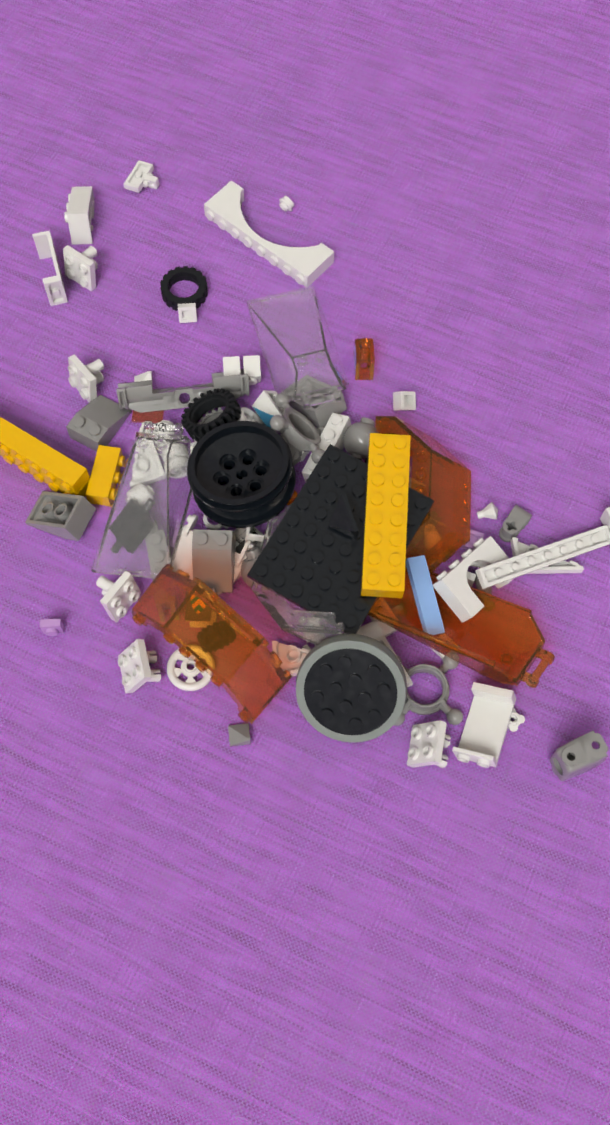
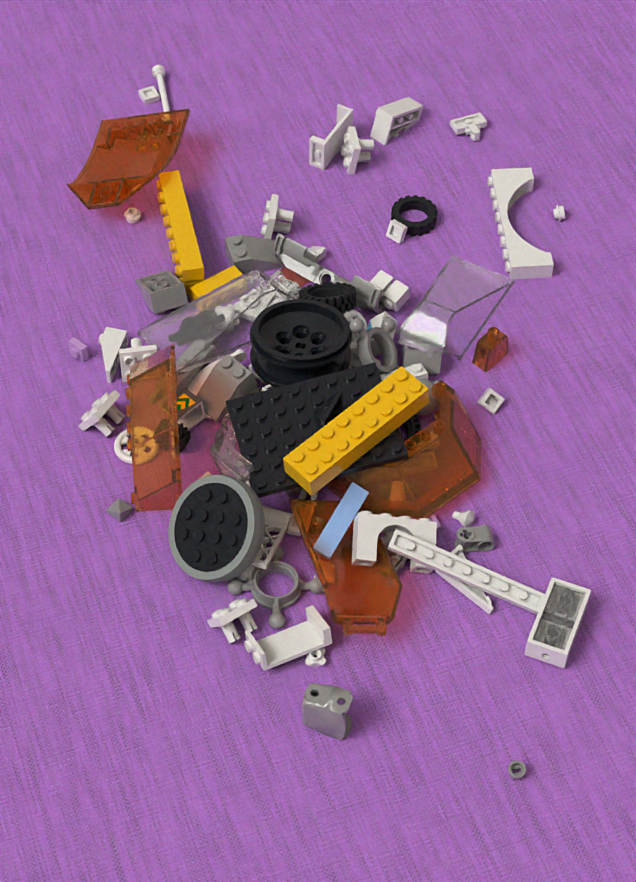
camera: 45 degrees right, 15 degrees down
(79, 603) = (111, 342): none -> white slope

